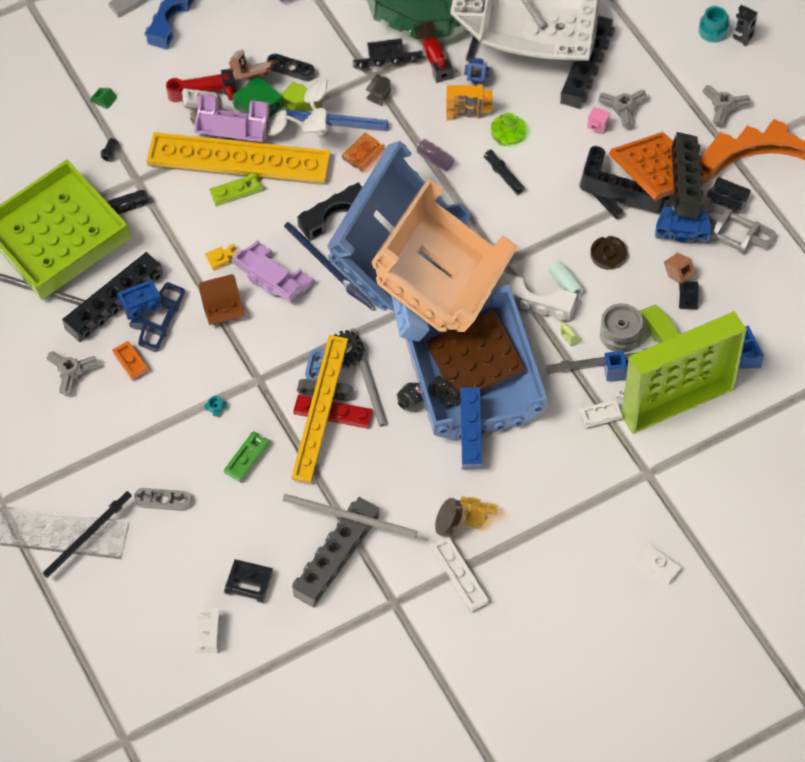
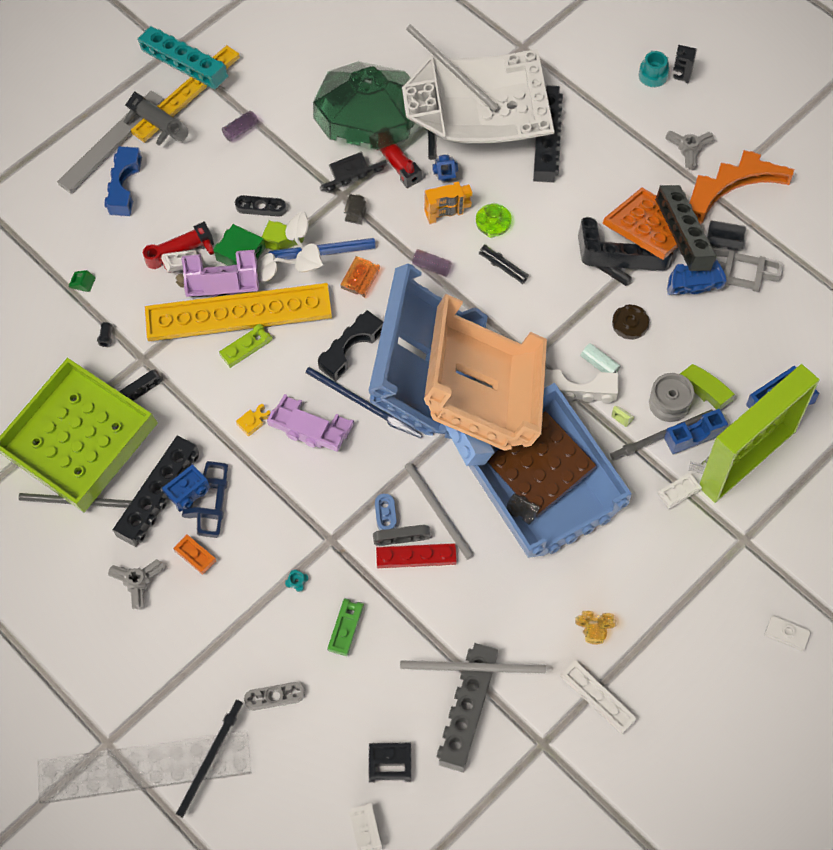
camera: 15 degrees left, 5 degrees up
(221, 299) = (269, 467): dark orange bracket -> none
(241, 69) = (220, 221): dark orange bracket -> none
(320, 409) = (405, 560): yellow plate -> none
(357, 349) = (421, 486): black tyre -> none
(409, 396) = (489, 521): pearl dark grey head -> none
(448, 517) = (570, 641): dark brown tile -> none
(470, 428) = (567, 555): blue arch -> none
(598, 120) = (577, 190): bright pink plate -> none
(623, 104) = (596, 169): light grey bush -> none
(679, 267) = (705, 321): nougat brick -> none
(688, 295) = (722, 346): black bracket -> none

